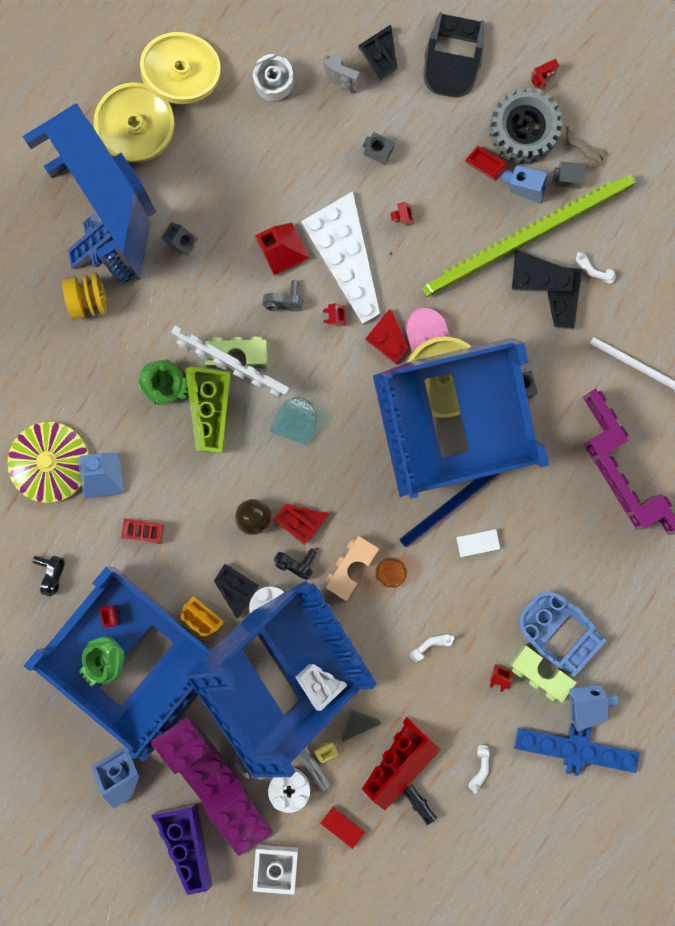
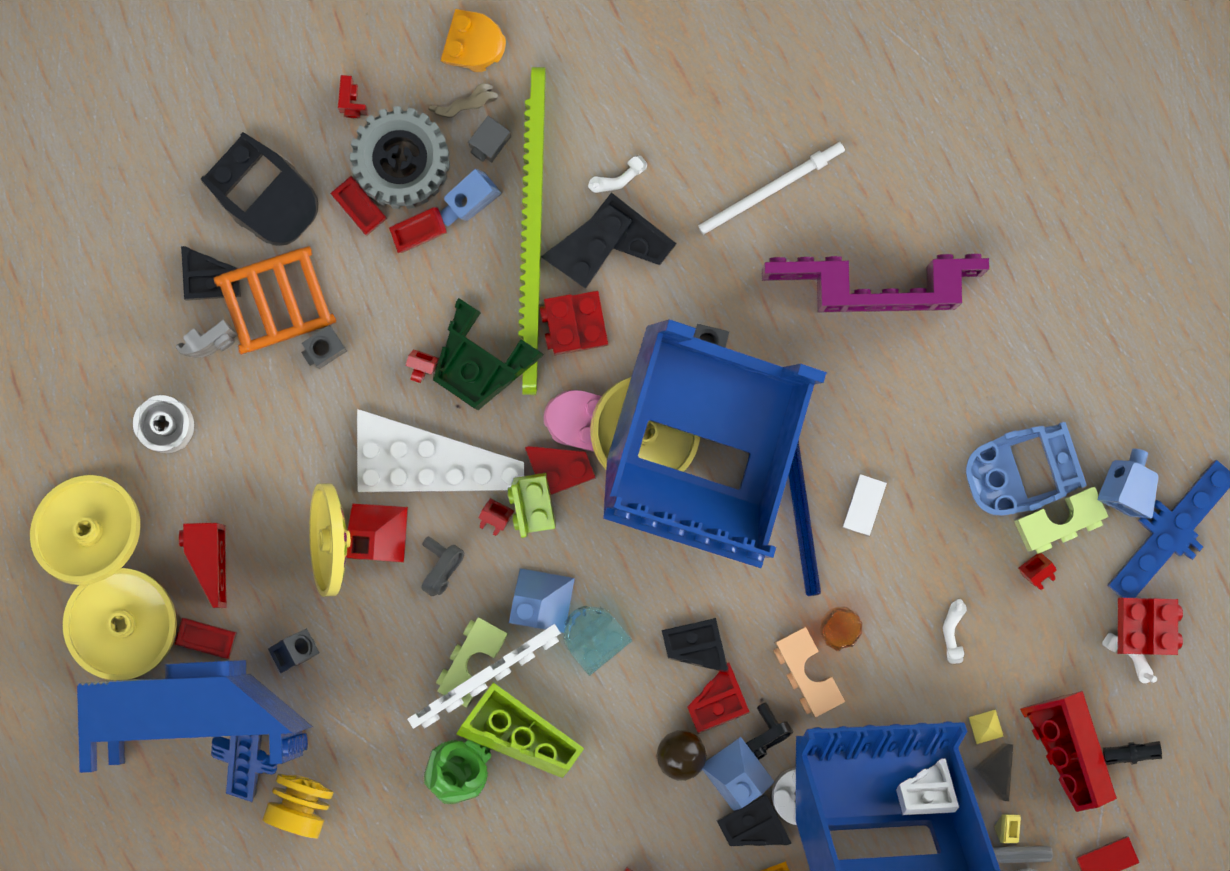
camera: 60 degrees left, 0 degrees up
(156, 181) = (205, 638): none -> red tile
(207, 150) = (206, 552): none -> red slope
(261, 217) = (327, 539): none -> light yellow dish
(261, 559) = (737, 774): none -> medium blue slope
(299, 373) = (541, 600): none -> medium blue slope
(328, 487) = (696, 645): none -> black wing
(356, 332) = (532, 504): none -> lime bracket
(382, 701) = (986, 726): none -> light yellow slope
(398, 76) = (274, 336): none -> orange bar
(418, 248) = (472, 371): none -> dark green wing
(480, 119) = (358, 205): none -> red tile
(485, 294) = (574, 323): none -> red plate
(507, 769) = (1149, 626): none -> red plate
(625, 129) = (473, 41): none -> light orange slope

